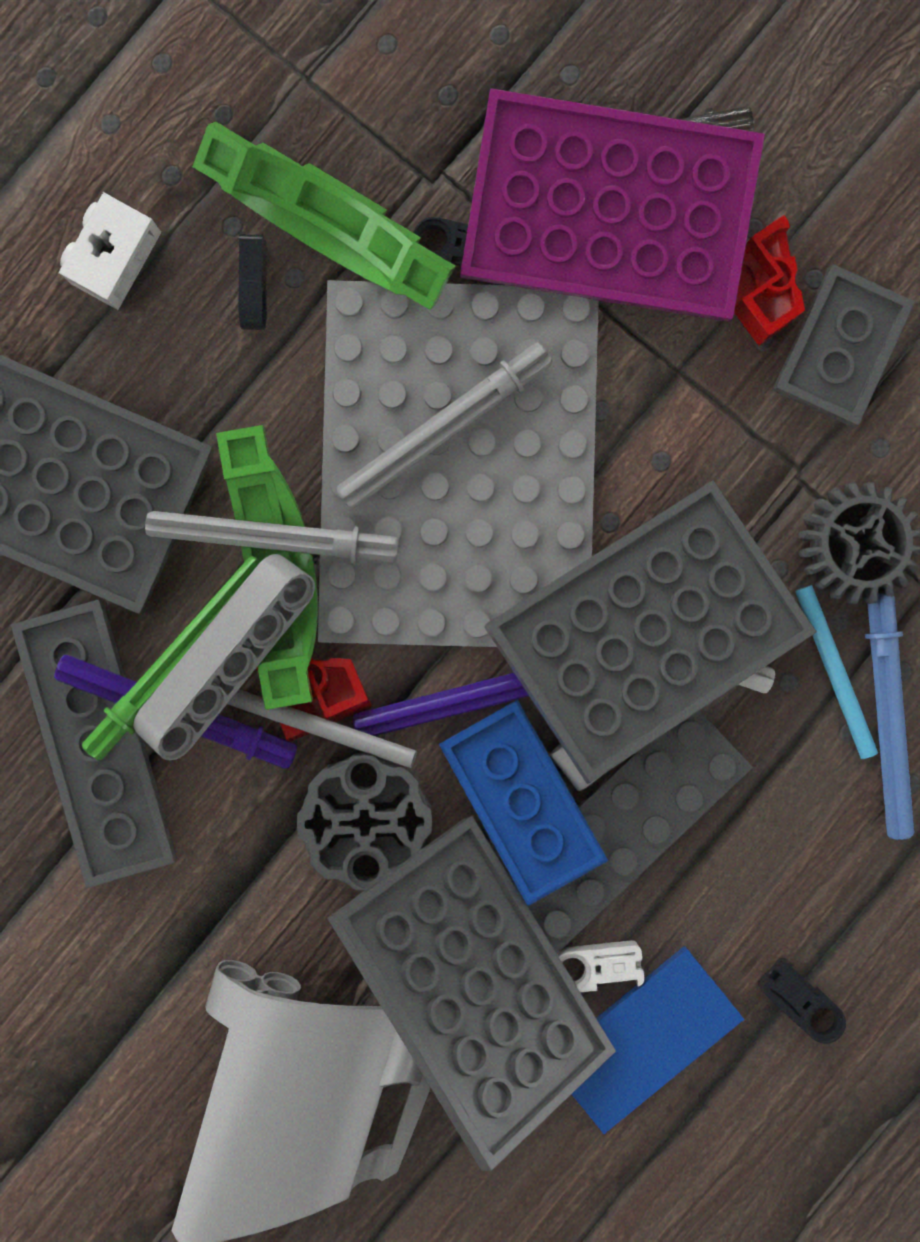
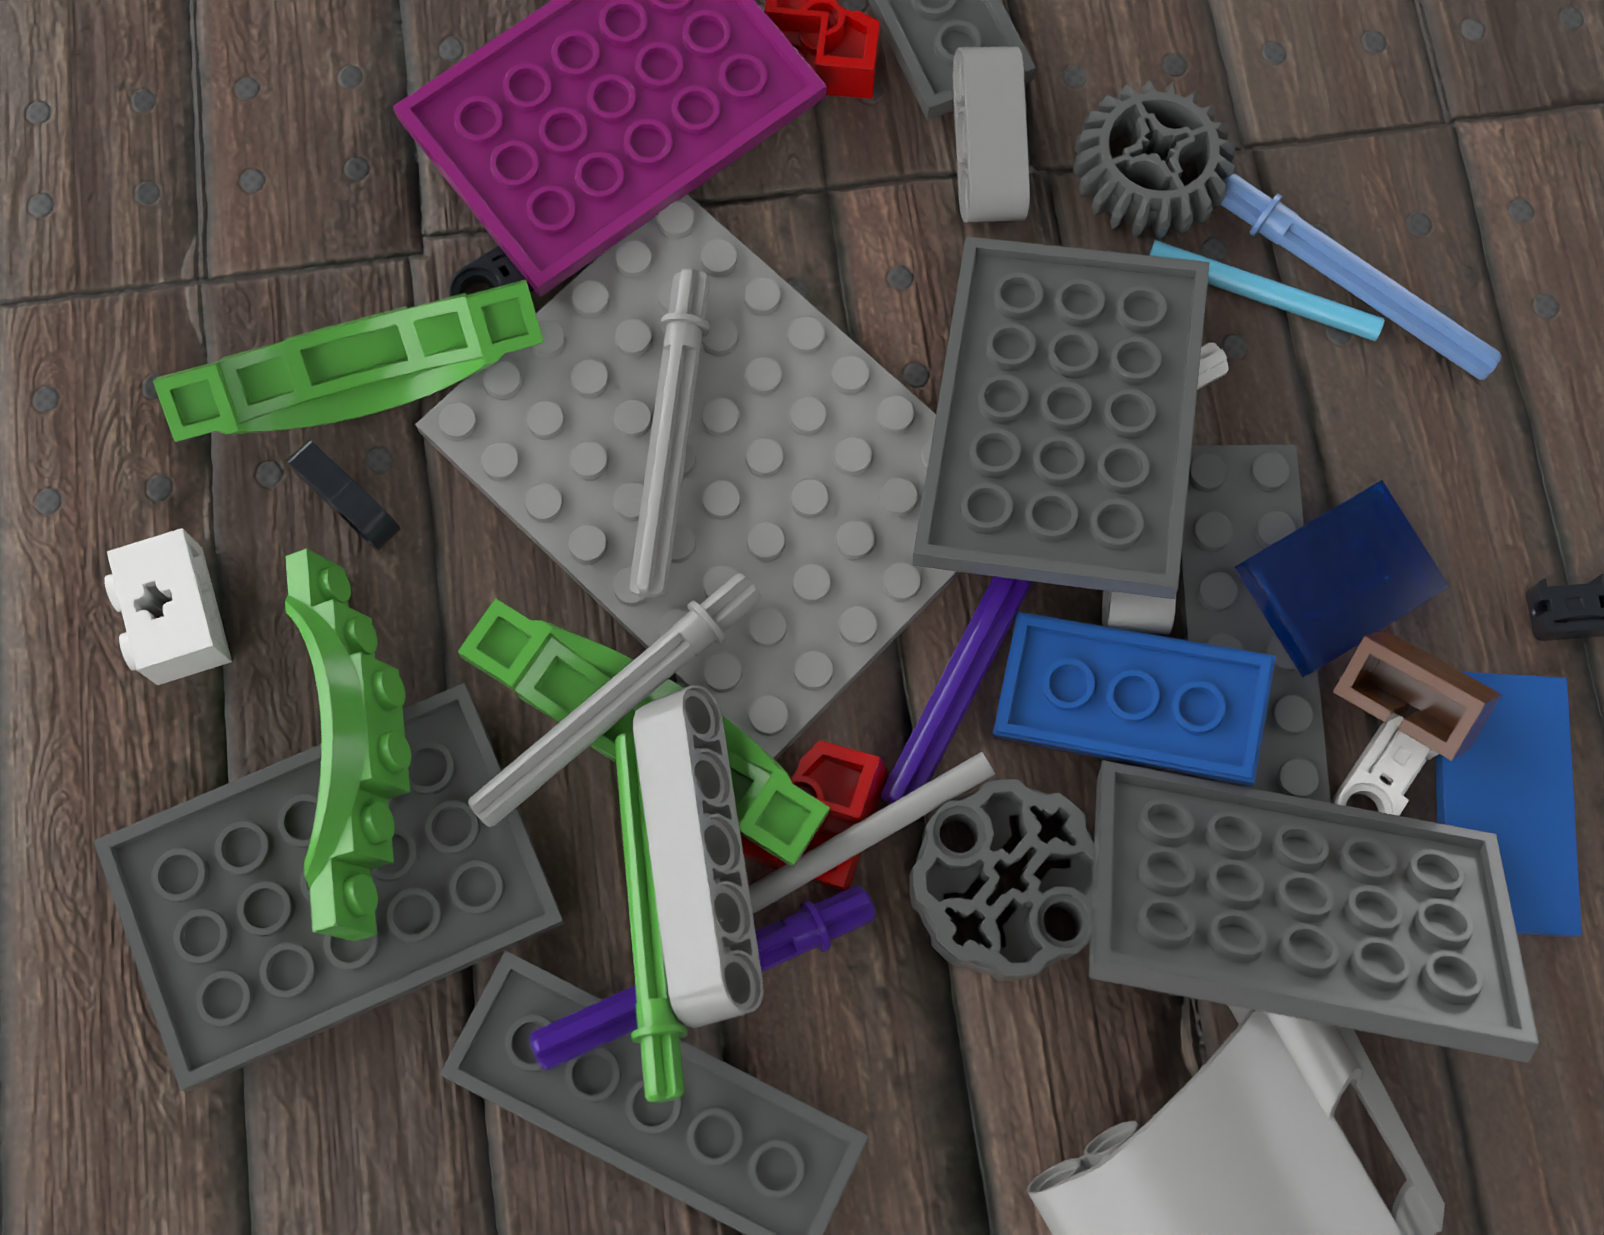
camera: 45 degrees left, 15 degrees down
(129, 423) = (361, 748): none -> bright green piece
(664, 930) = (1393, 674): none -> piece
(692, 856) = (1341, 578): none -> clear blue tile
(790, 438) = (991, 134): none -> light grey beam

